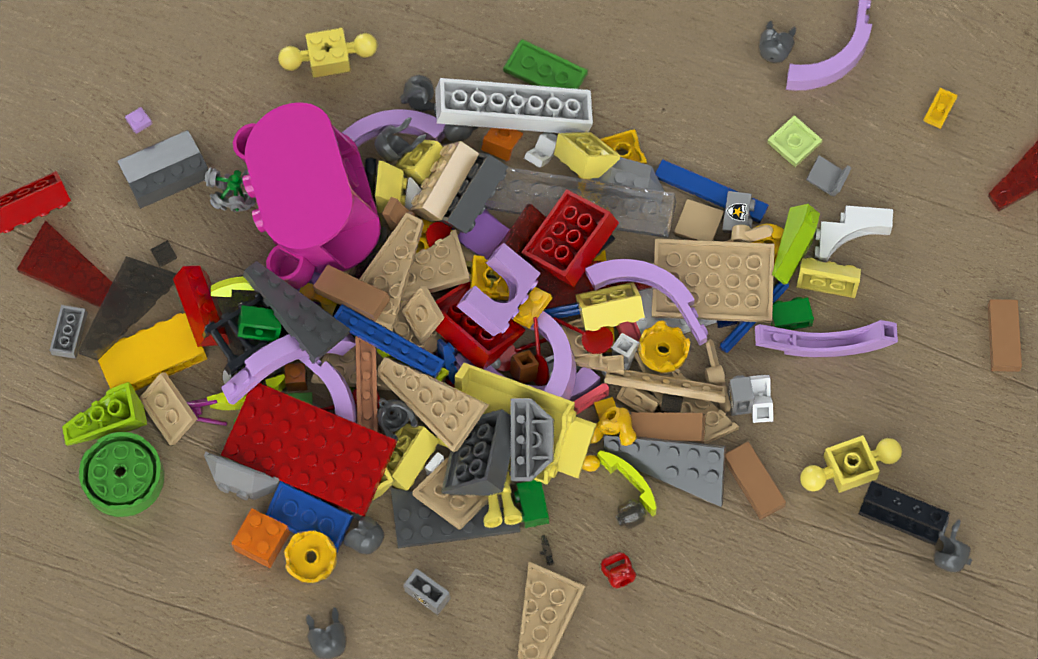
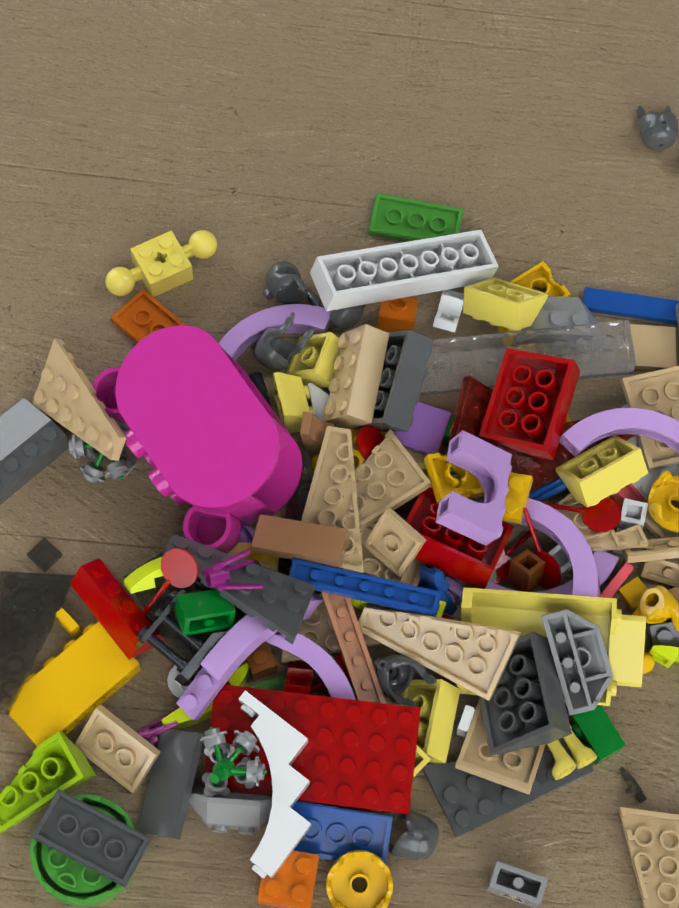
camera: 25 degrees left, 0 degrees up
(127, 464) = (91, 838): none -> dark grey tile
(163, 308) = (68, 623): none -> yellow tile
(198, 444) = (170, 784): none -> dark grey tile
(217, 142) = (71, 401): none -> tan wing
(238, 430) = (219, 751): none -> light grey plant
(250, 288) = (179, 570): none -> piece
(275, 298) = (219, 573): none -> magenta plant
(283, 440) = (281, 746): none -> white arch
(303, 89) = (143, 316): none -> orange tile
(319, 397) = (299, 677): none -> red slope

